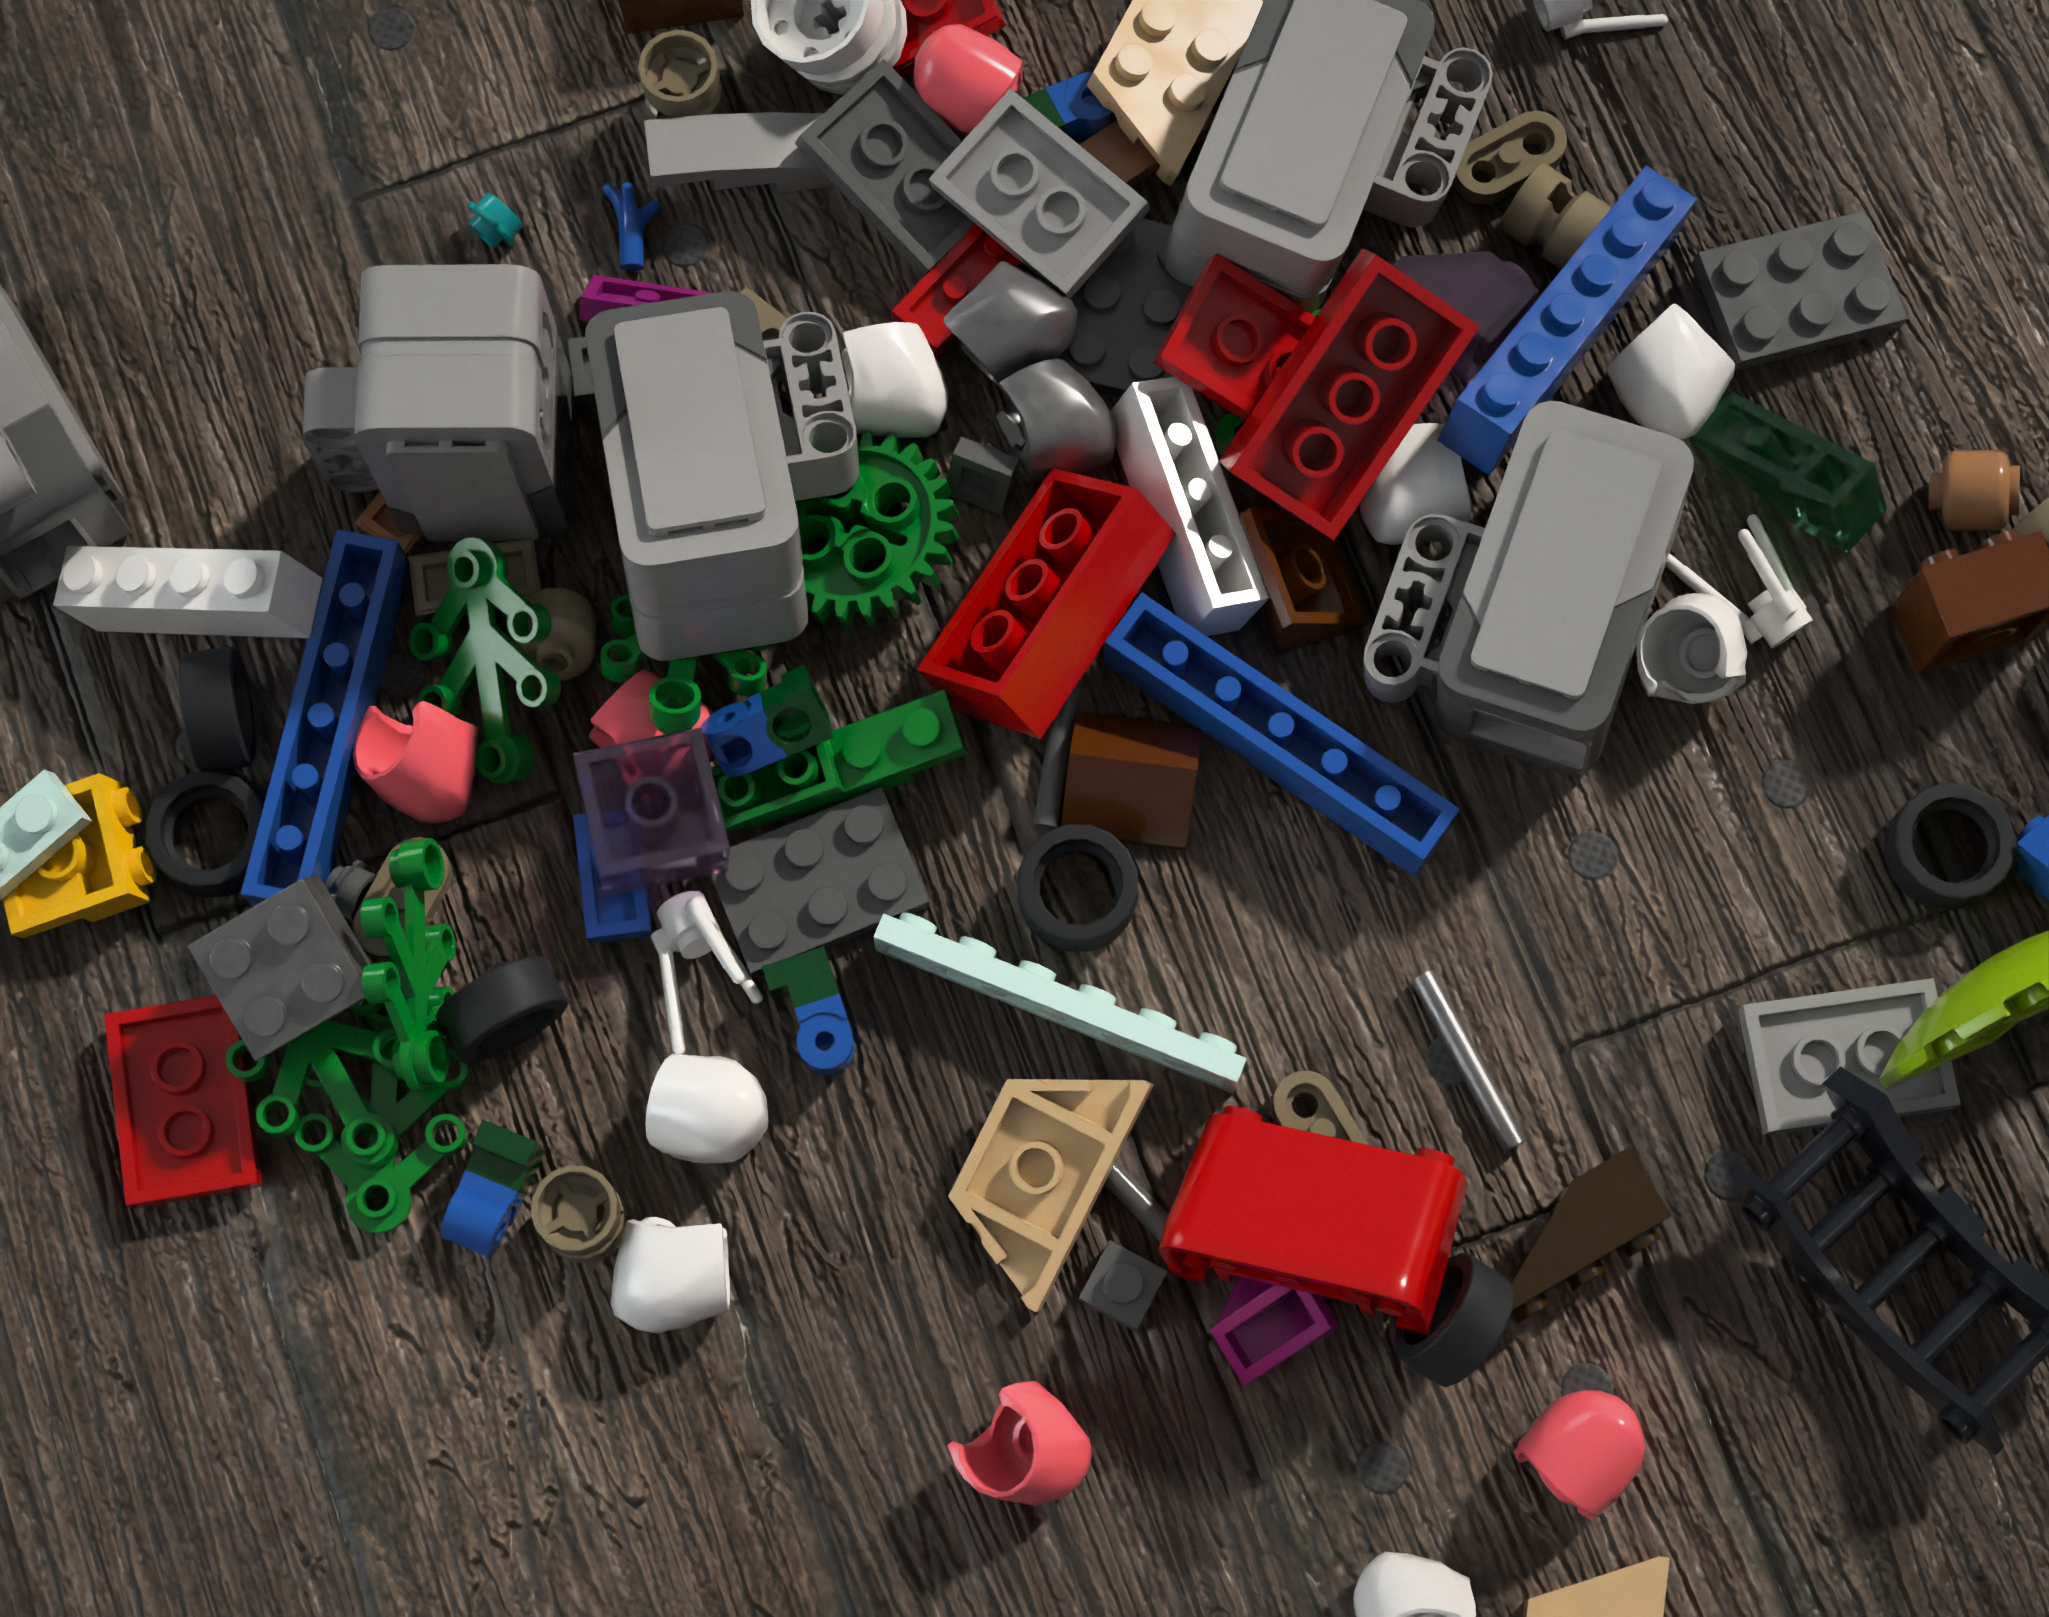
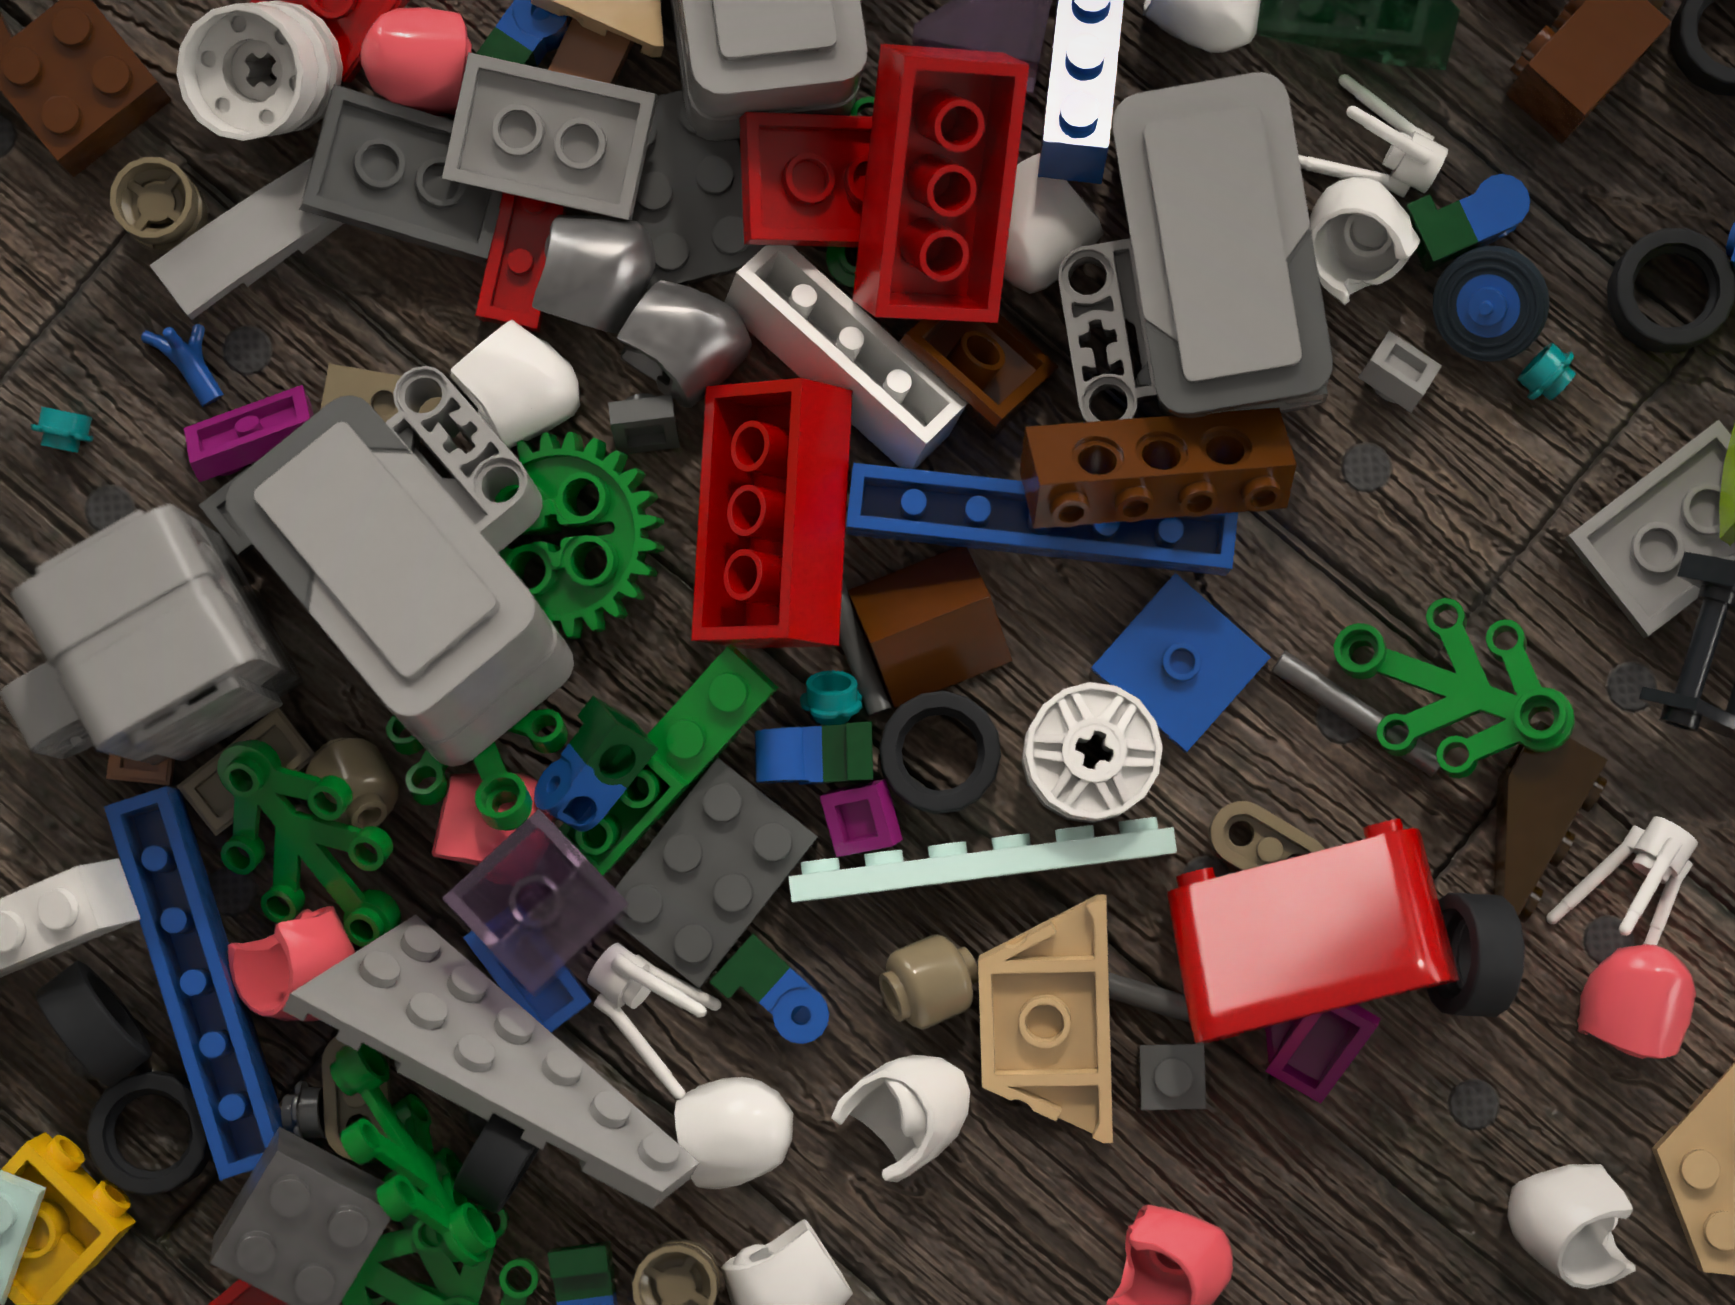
camera: 25 degrees left, 10 degrees up
(532, 909) = (489, 1055): none -> light grey wing
(873, 1173) = (912, 1107): none -> white piece
(953, 1077) = (929, 981): none -> dark tan head
(969, 831) = (815, 754): none -> leg
(976, 905) = (861, 818): none -> magenta plate
(1010, 790) = (831, 697): none -> teal plate
(1210, 992) = (1057, 770): none -> white wheel
(1333, 930) = (1181, 661): none -> blue plate
(1404, 734) = (1156, 468): none -> reddish brown brick
(1570, 1084) = (1462, 692): none -> green plant
(1666, 784) = (1399, 372): none -> light grey plate
(1675, 1334) = (1661, 855): none -> white plant
(1780, 769) = (1490, 303): none -> black wheel
(1797, 691) = (1470, 222): none -> leg
(1799, 858) = (1547, 373): none -> teal plate

